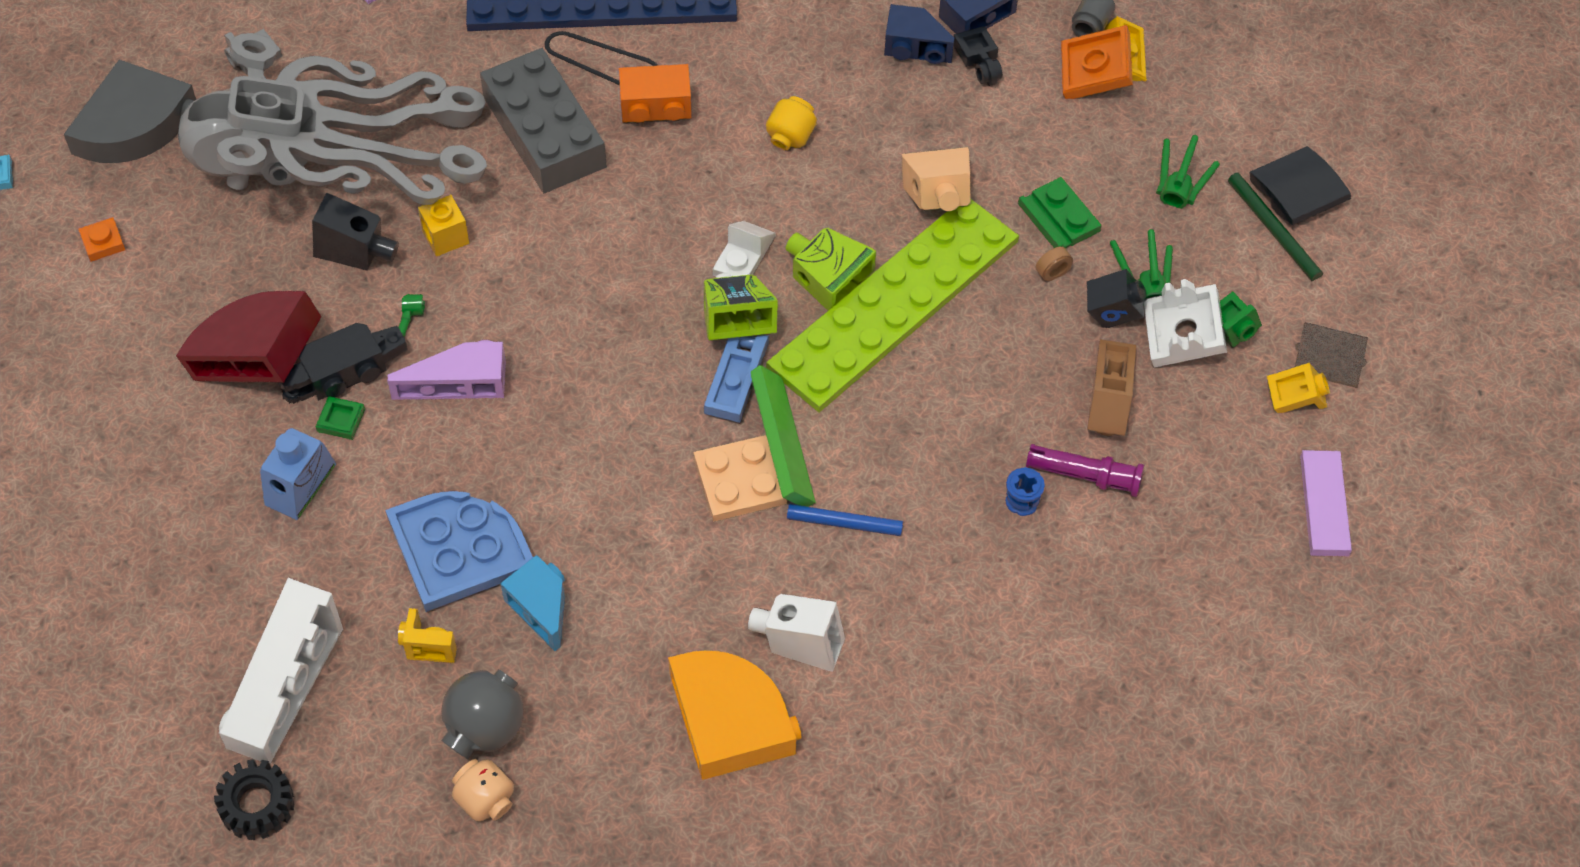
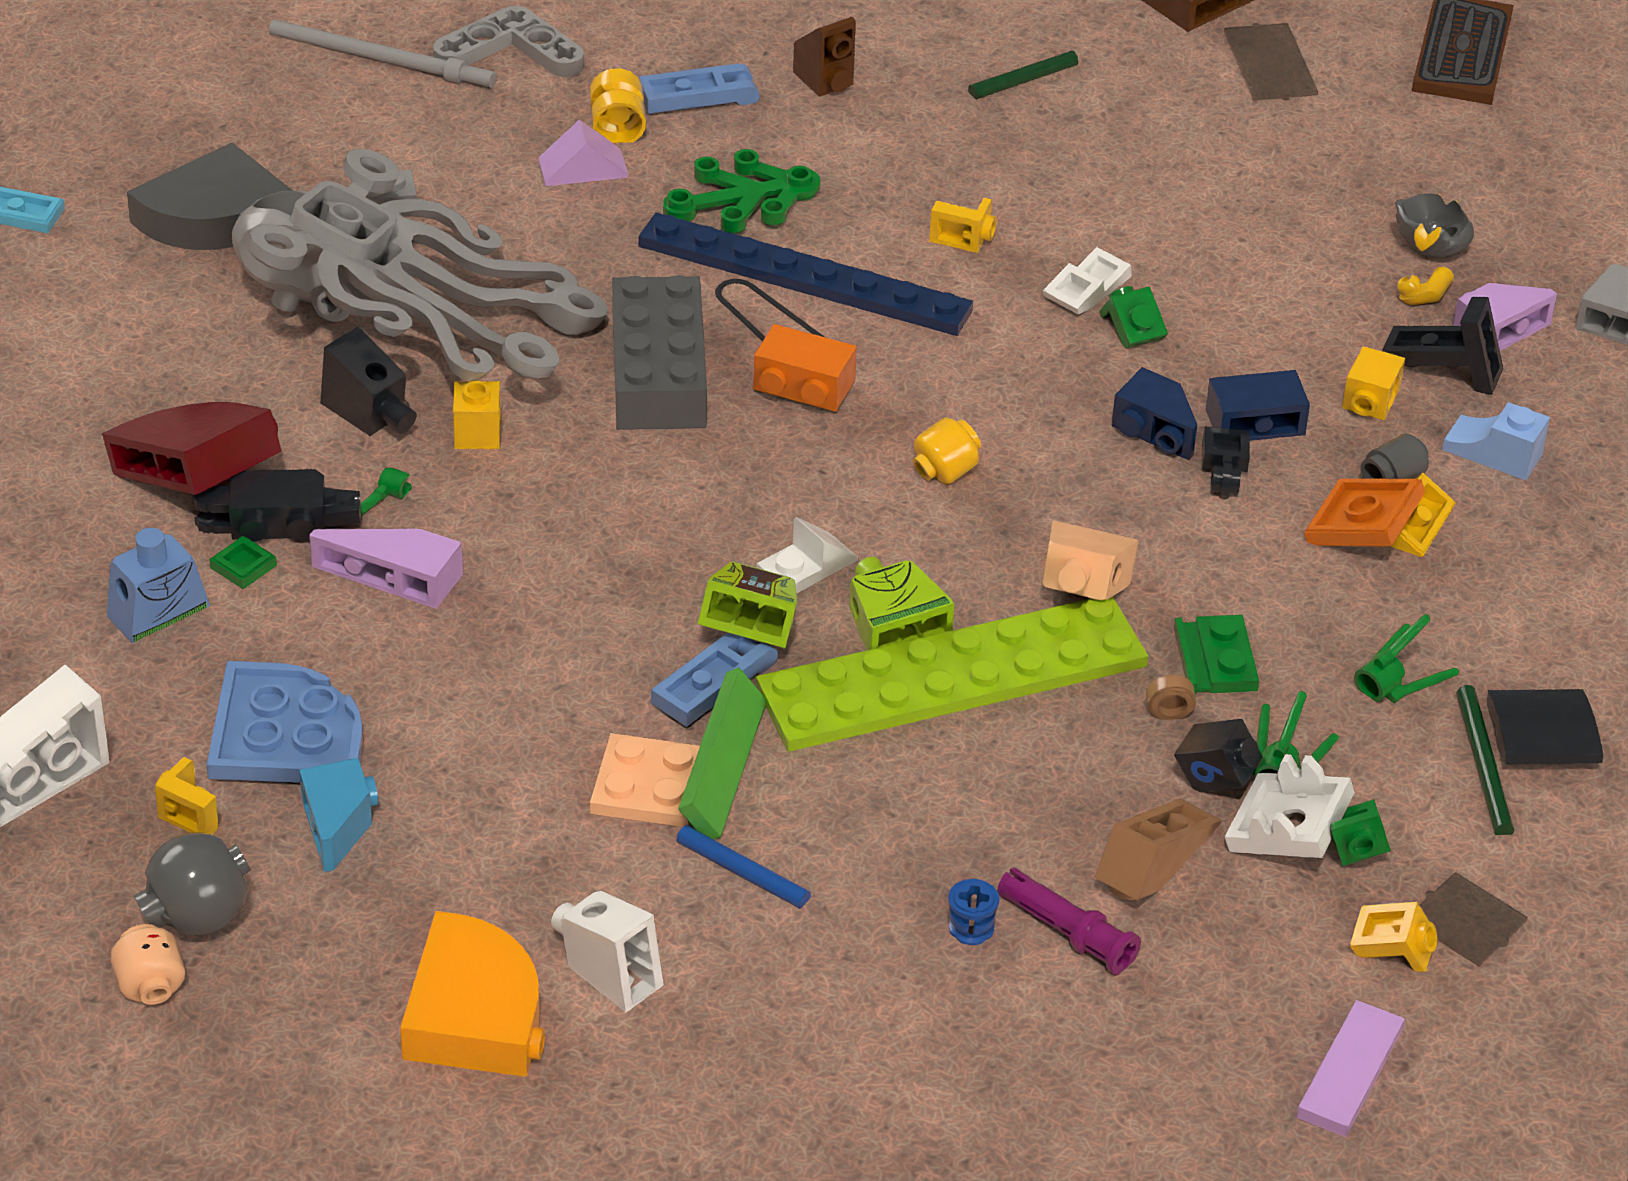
camera: 25 degrees right, 15 degrees down
(101, 239) = (106, 309): orange plate -> none

